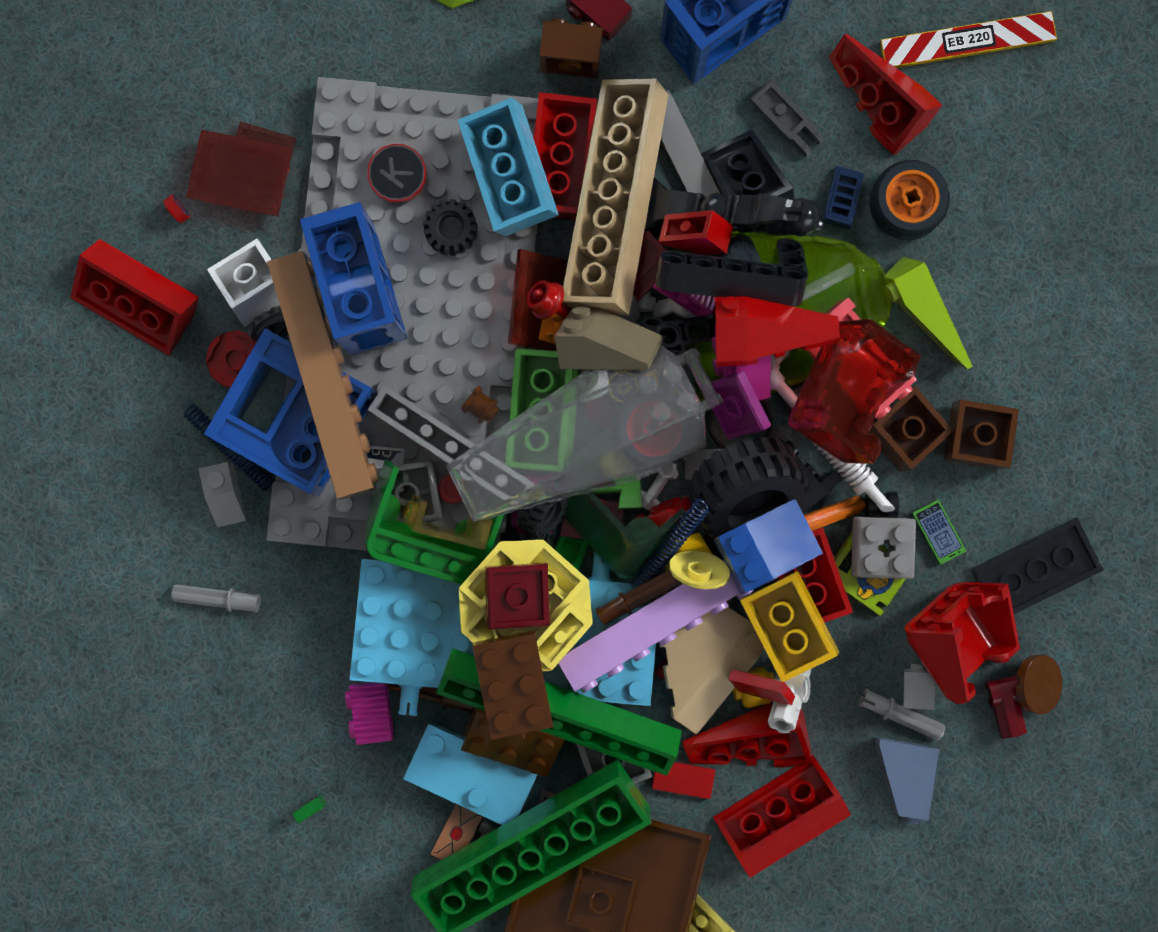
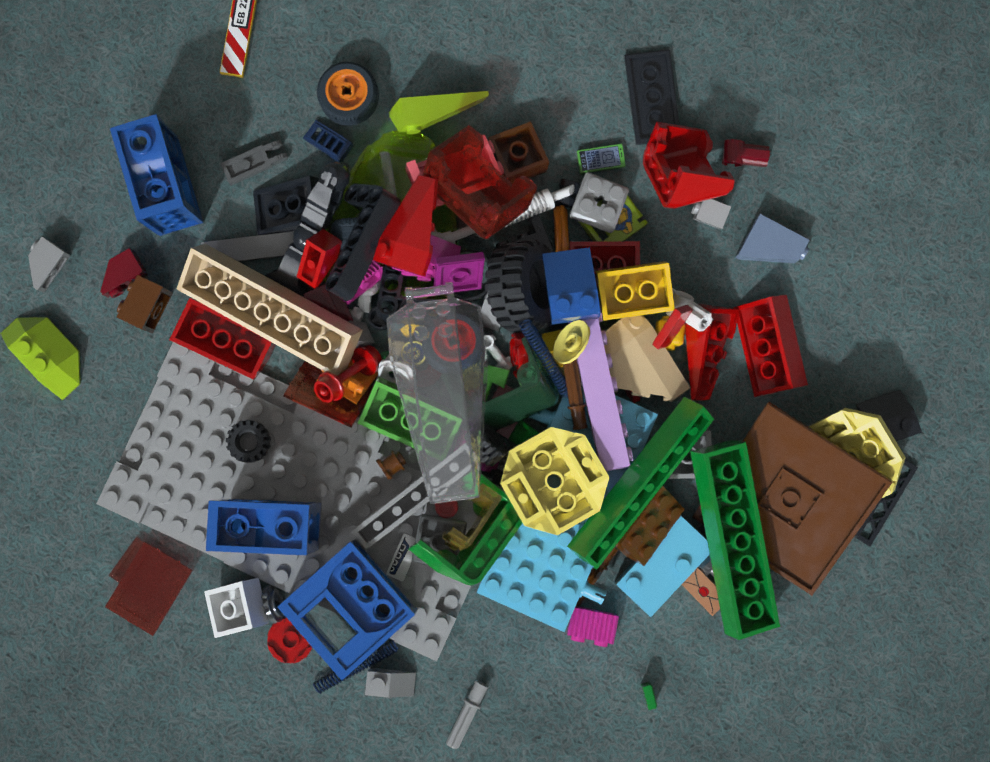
camera: 75 degrees left, 0 degrees up
(133, 296) = (214, 702): red slope -> none
(176, 209) = (159, 646): red tile -> none
(322, 376) = (328, 574): medium nougat brick -> none
(397, 173) = (192, 468): black tile -> none
(507, 167) = (218, 382): medium azure brick -> none
(512, 684) = (610, 509): reddish brown brick -> none
(517, 596) = (545, 483): dark red tile -> none
(604, 341) = (377, 354): dark tan slope -> none
(686, 780) = (721, 406): red tile -> none
(890, 709) = (723, 235): light grey axle -> none
(891, 98) = (266, 80): red wedge -> none
(981, 434) = (540, 102): reddish brown brick -> none
(1039, 684) = (736, 125): reddish brown tile -> none

